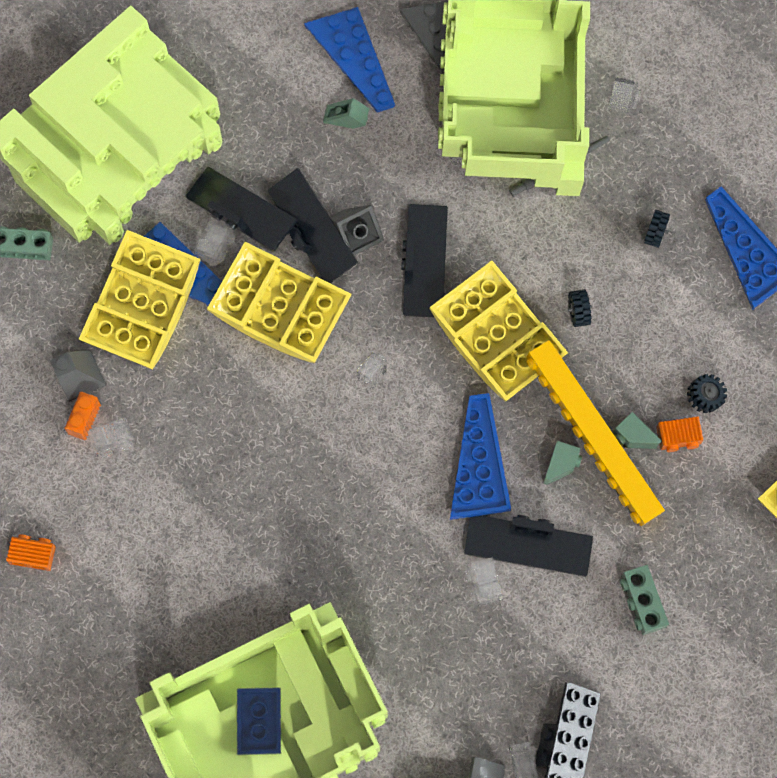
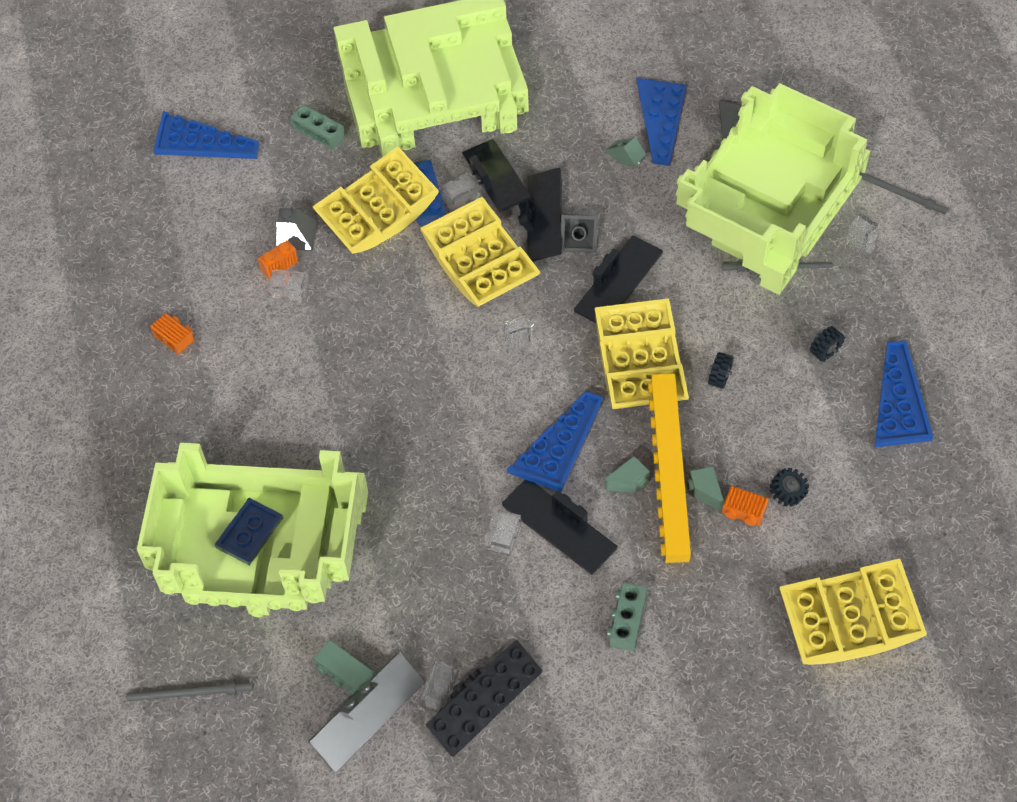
camera: 35 degrees right, 15 degrees down
(658, 26) = (928, 203): none -> dark grey bar

